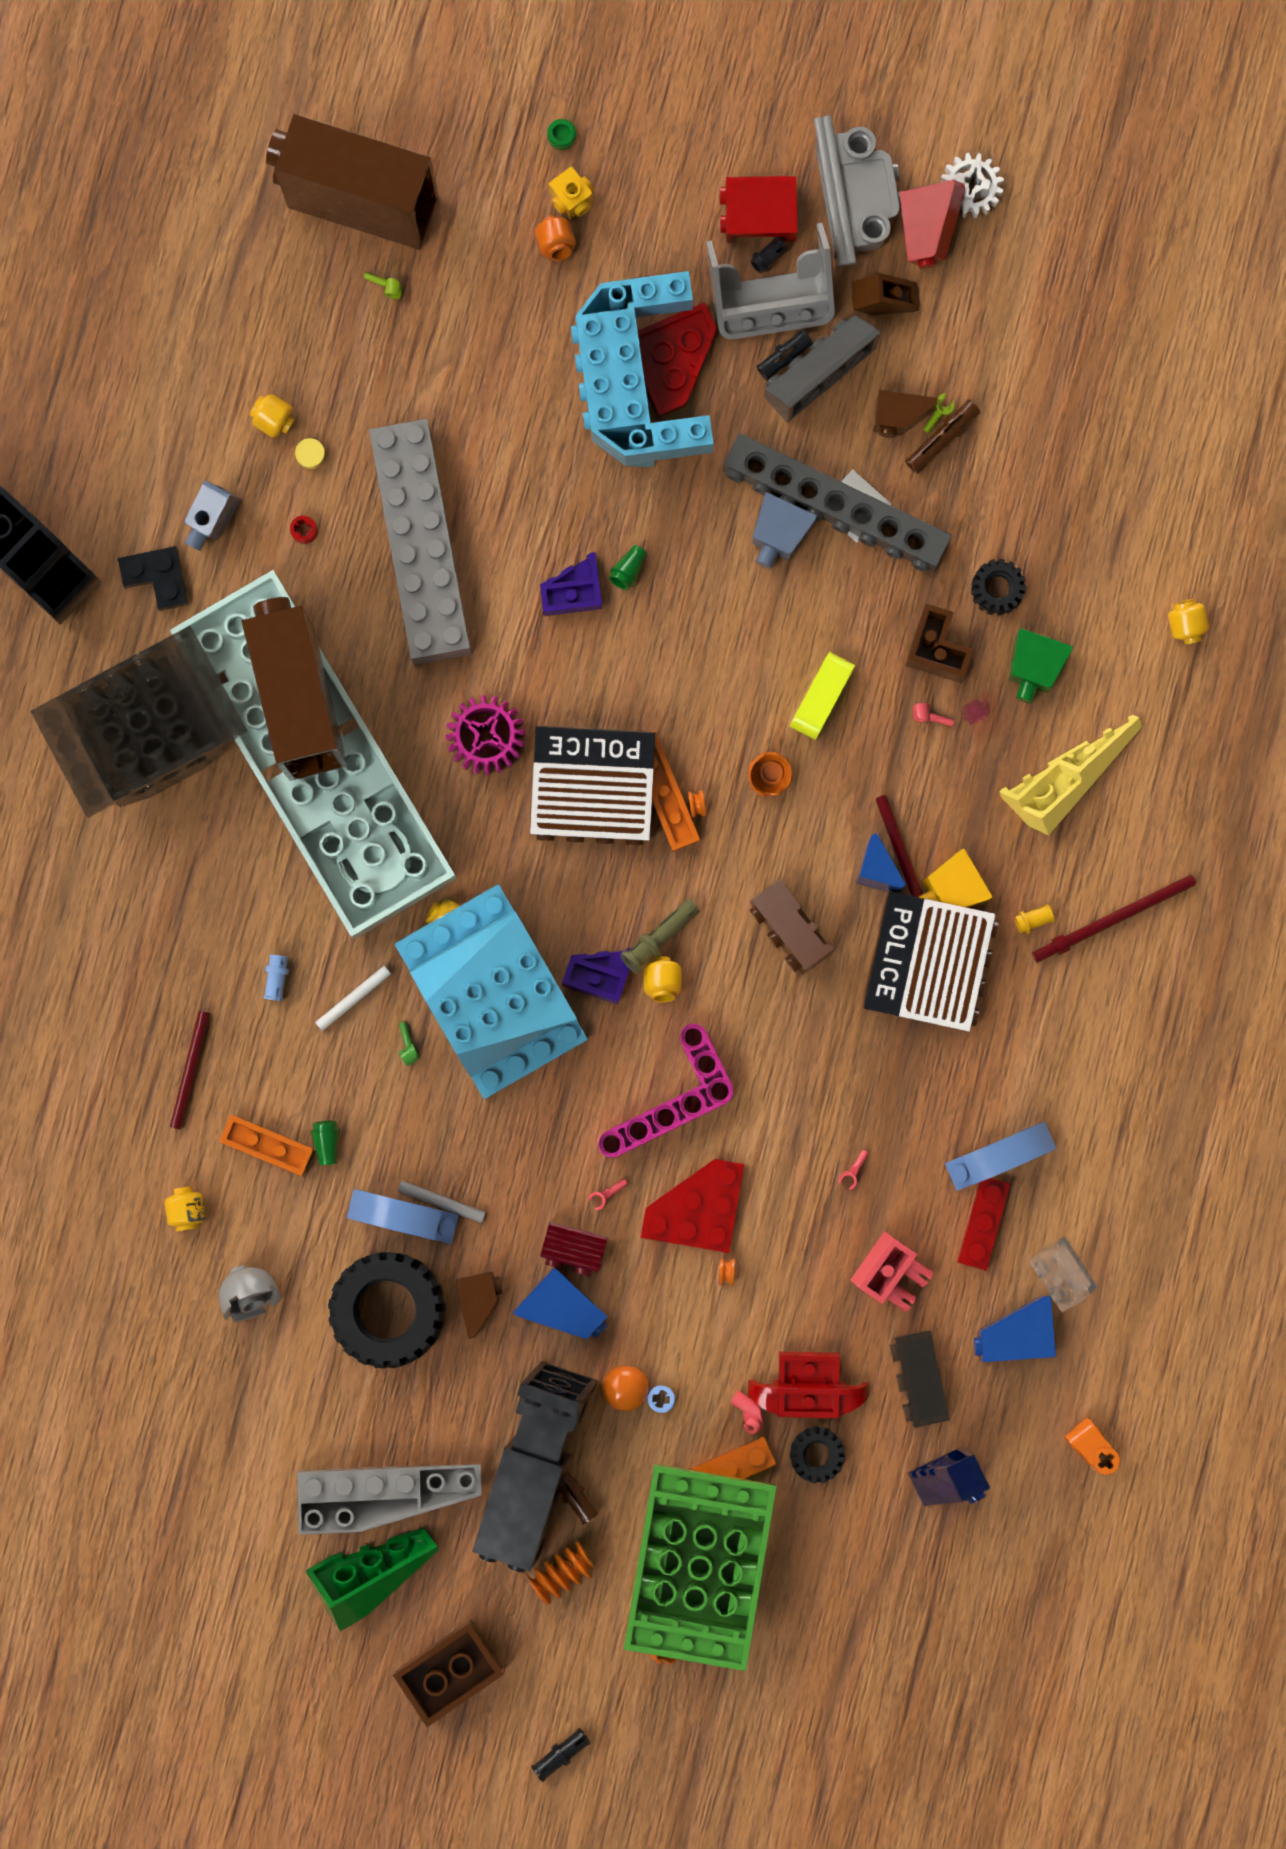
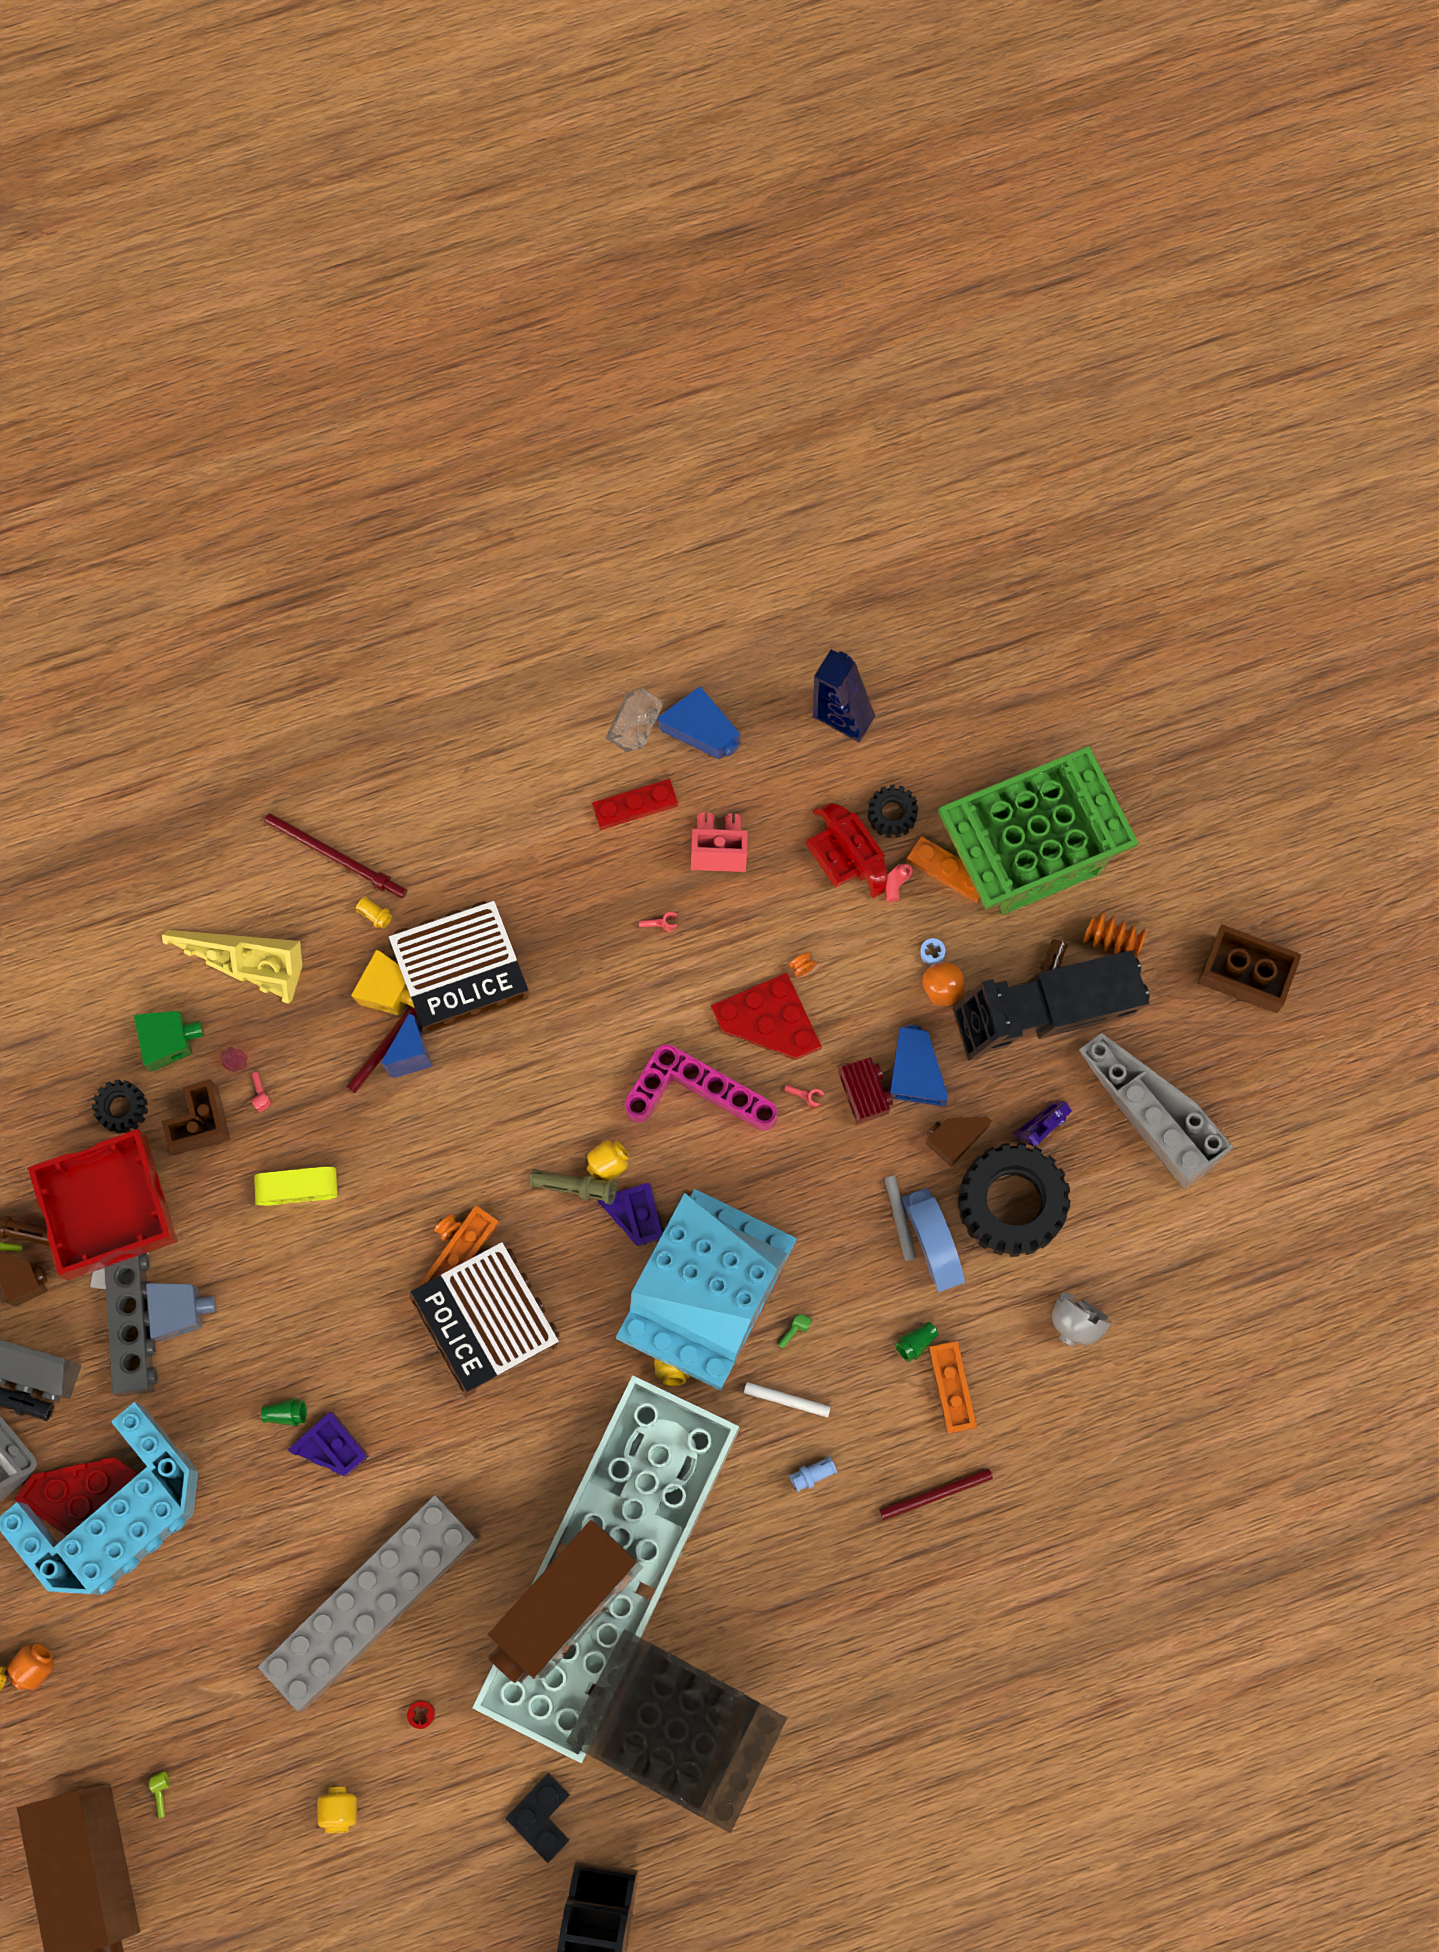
camera: 120 degrees left, 10 degrees down
(185, 1209) = (1049, 1417): yellow head -> none
(220, 507) = (444, 1804): sand blue torso -> none
(310, 453) = (350, 1755): light yellow tile -> none
(362, 1580) = (1229, 1081): green wedge -> none
(436, 1383) = (1043, 1123): none -> dark purple wing
(493, 724) = (500, 1461): dark pink gear -> none
(561, 1754) = (1246, 852): black pin -> none
(769, 774) = (386, 1185): orange hair -> none
(790, 928) = (501, 1087): reddish brown wedge -> none
(909, 518) = (102, 1205): none -> red tile
(919, 1379) = (783, 774): clear smoke brick -> none
(1000, 1156) = (571, 813): medium blue arch -> none
(1090, 1443) = (747, 625): orange piece -> none
(1188, 621) = (59, 944): yellow head -> none

